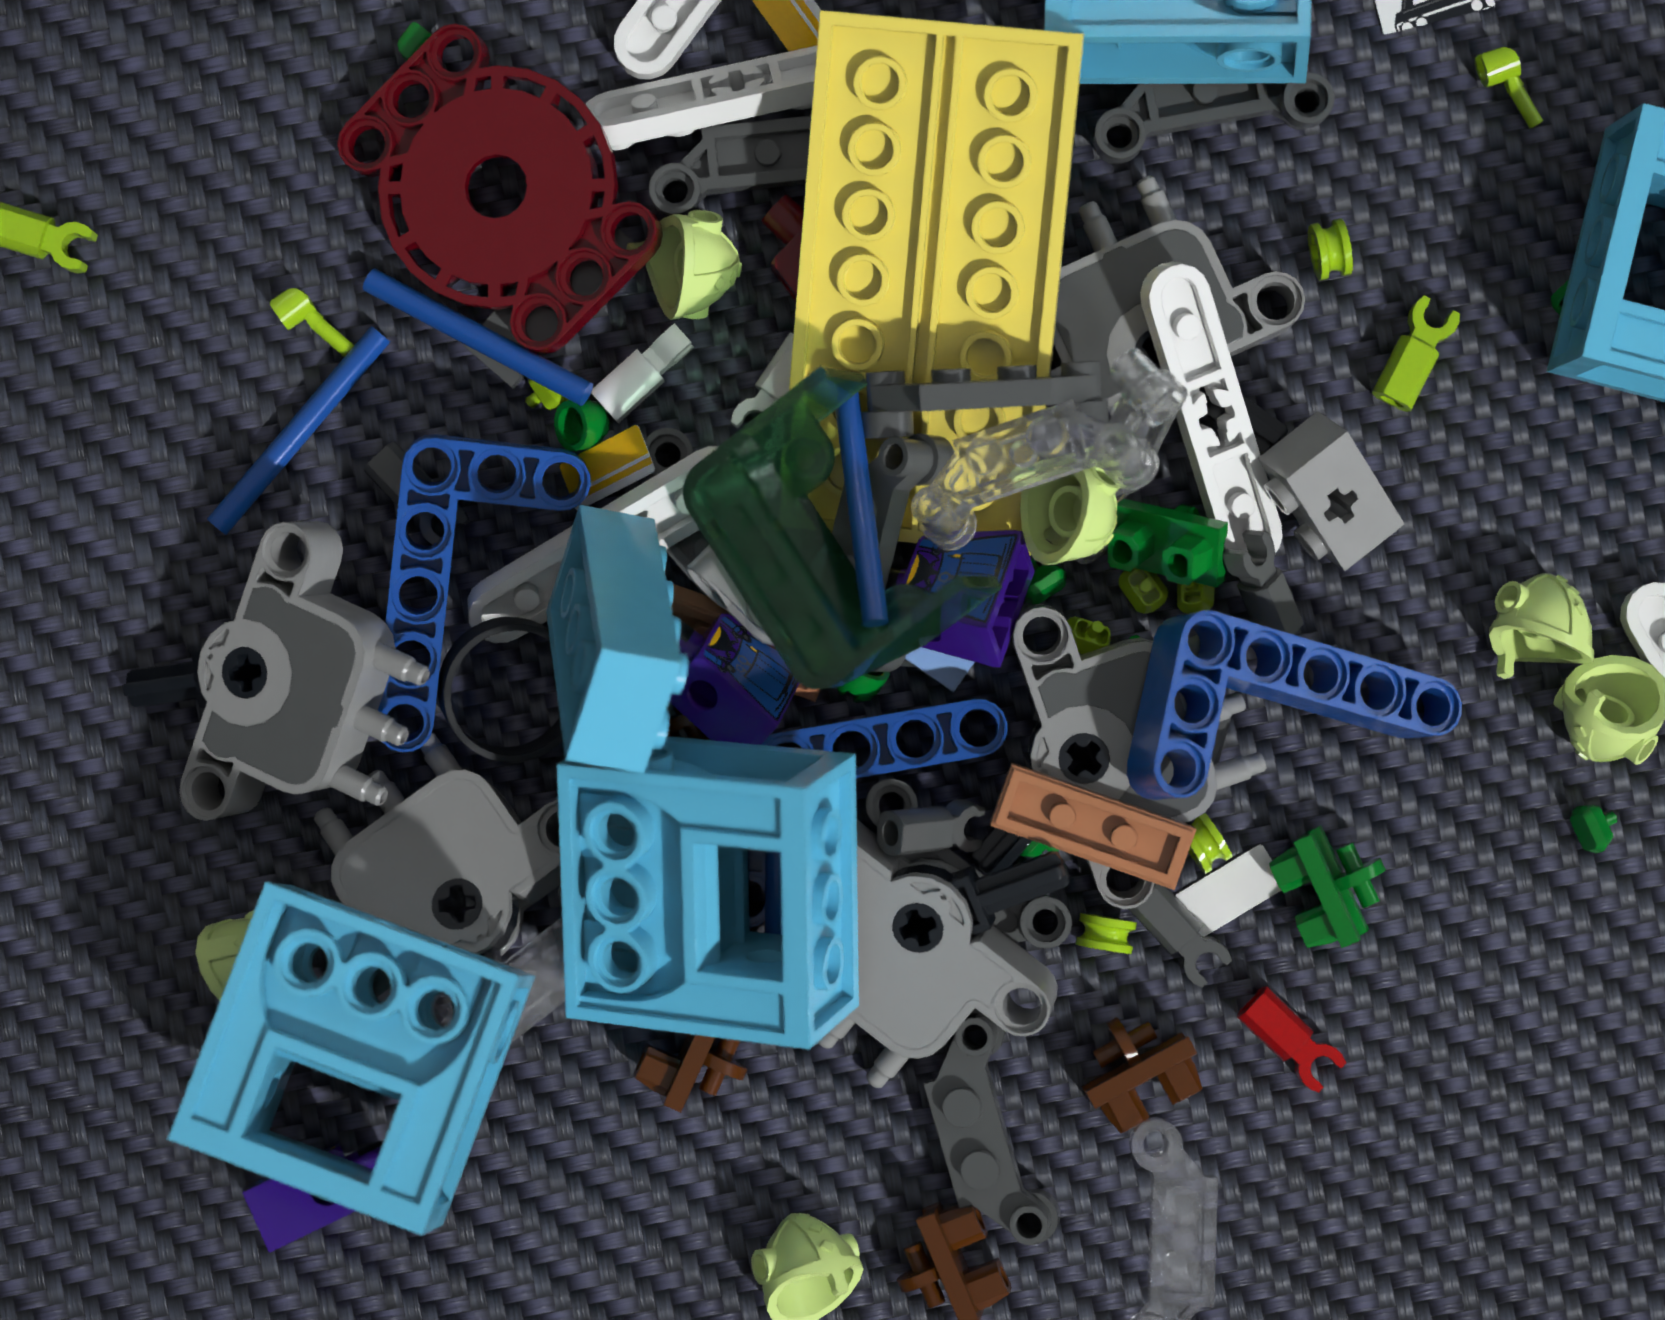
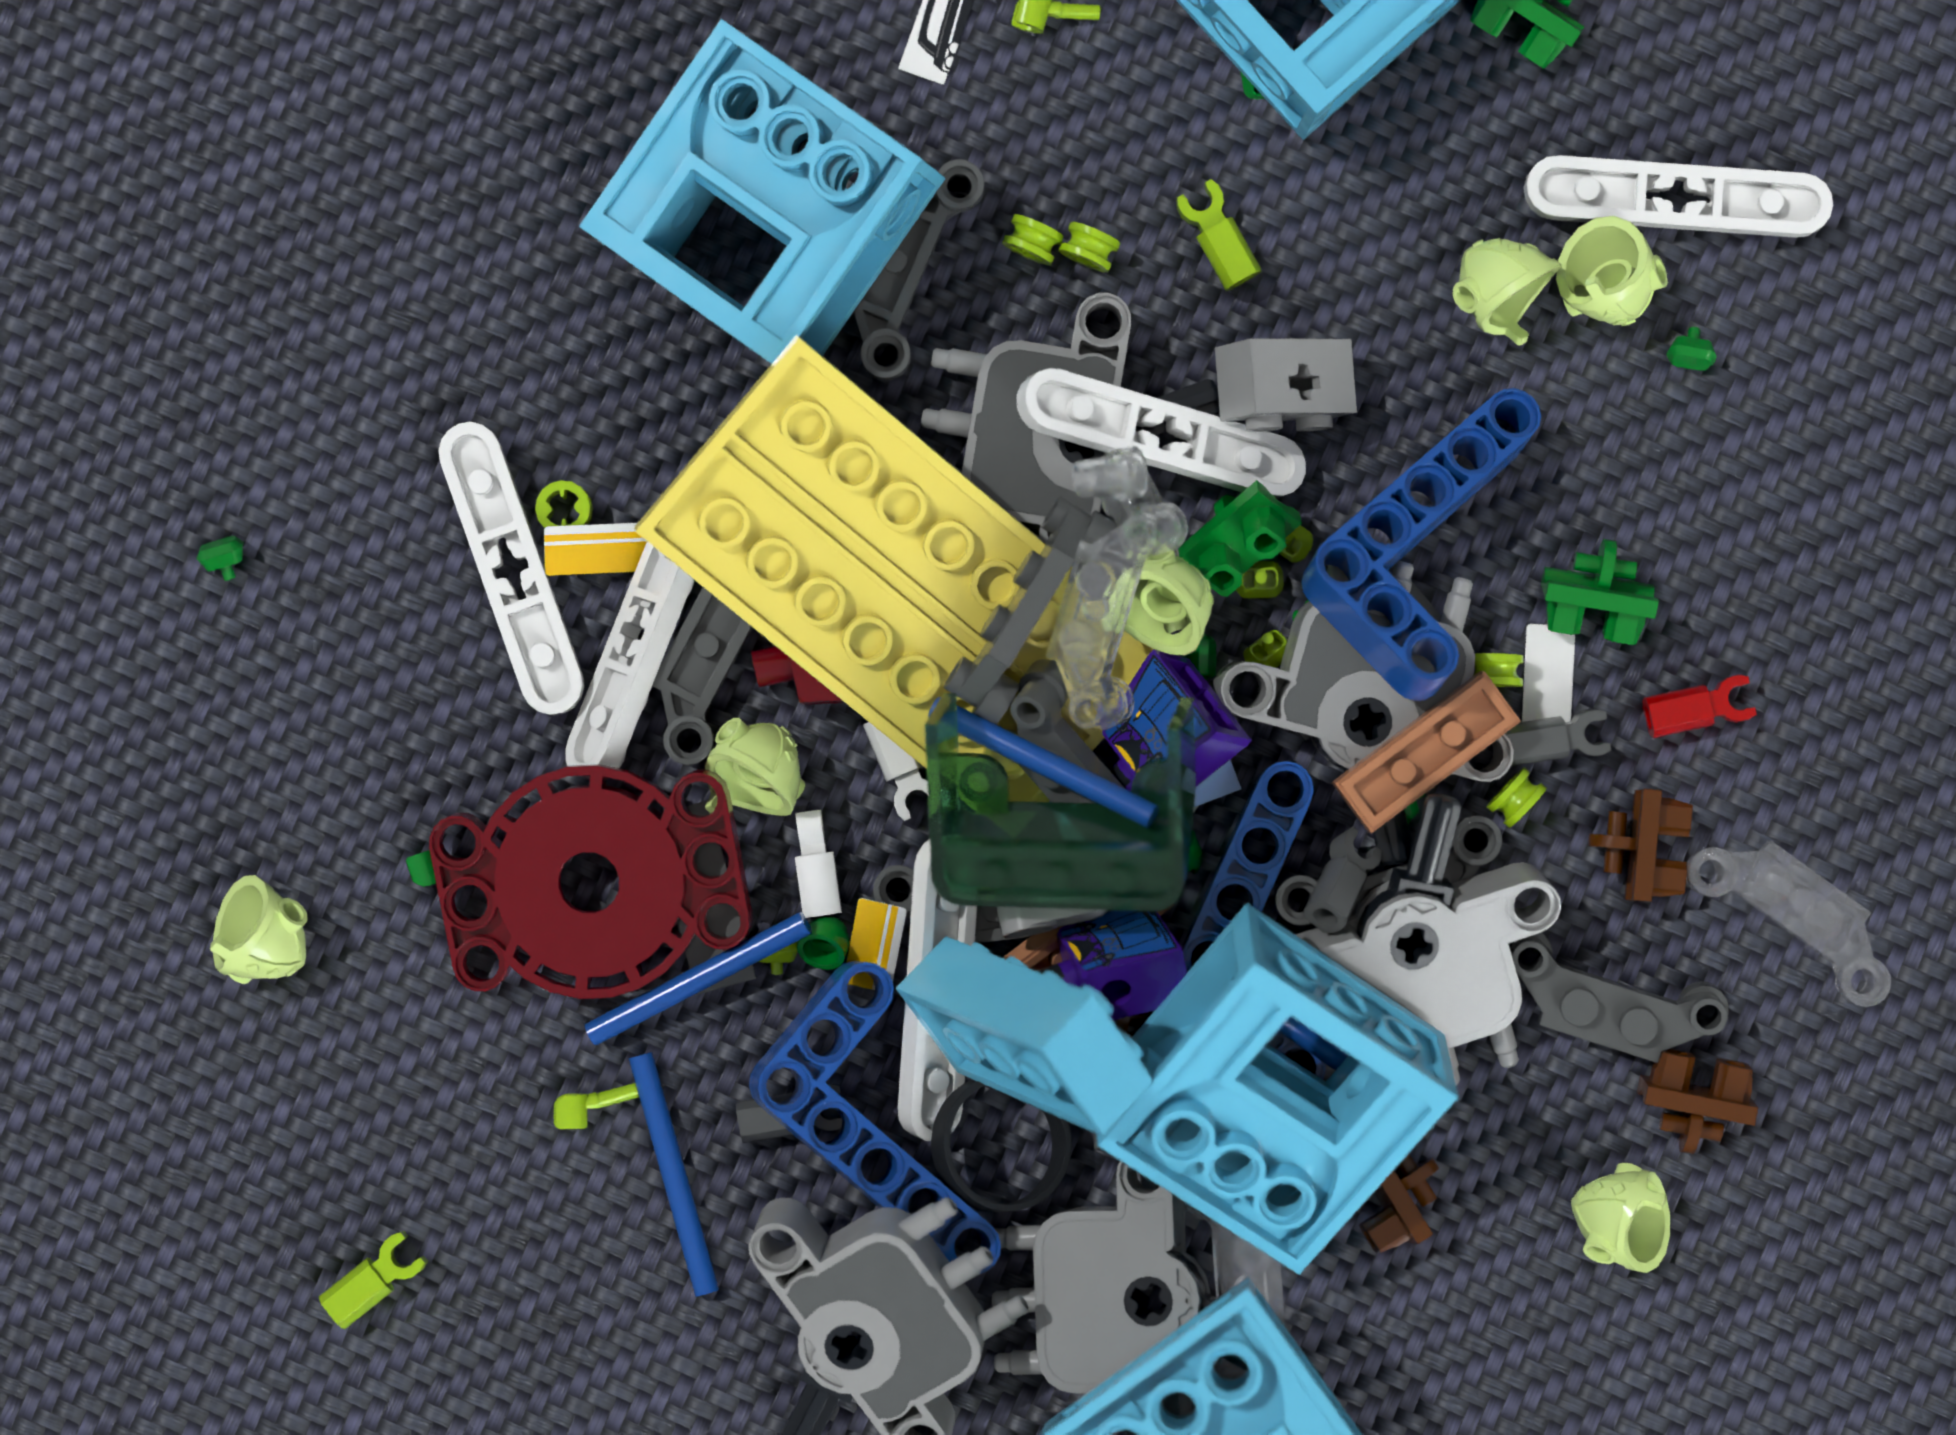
camera: 50 degrees left, 0 degrees up
(1263, 584) = (1325, 484): dark grey bar -> none
(1303, 196) = (1032, 239): none -> lime bush

